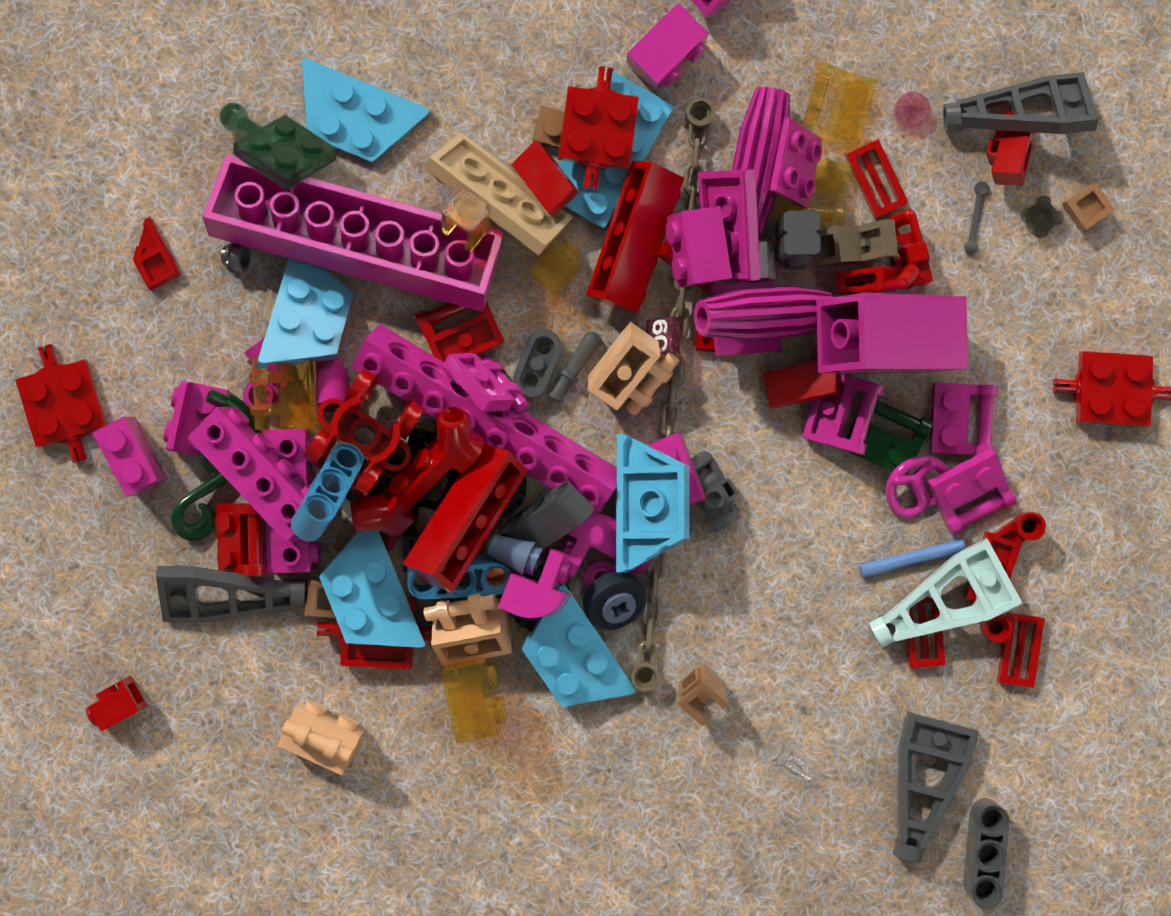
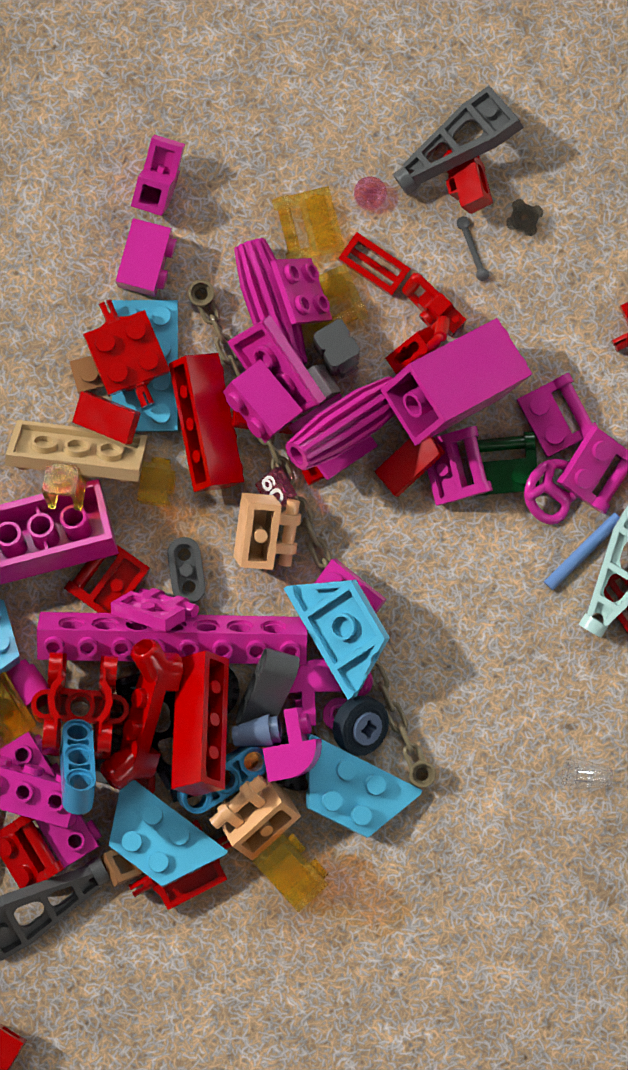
camera: 30 degrees left, 5 degrees down
(321, 737) = (185, 979): light nougat brick -> none
(579, 358) = (218, 549): dark grey piece -> none
(697, 689) = (471, 759): medium nougat window -> none
(718, 504) = (399, 598): dark grey piece -> none
(857, 244) = (387, 326): dark tan brick -> none
(1088, 206) = (556, 188): medium nougat plate -> none

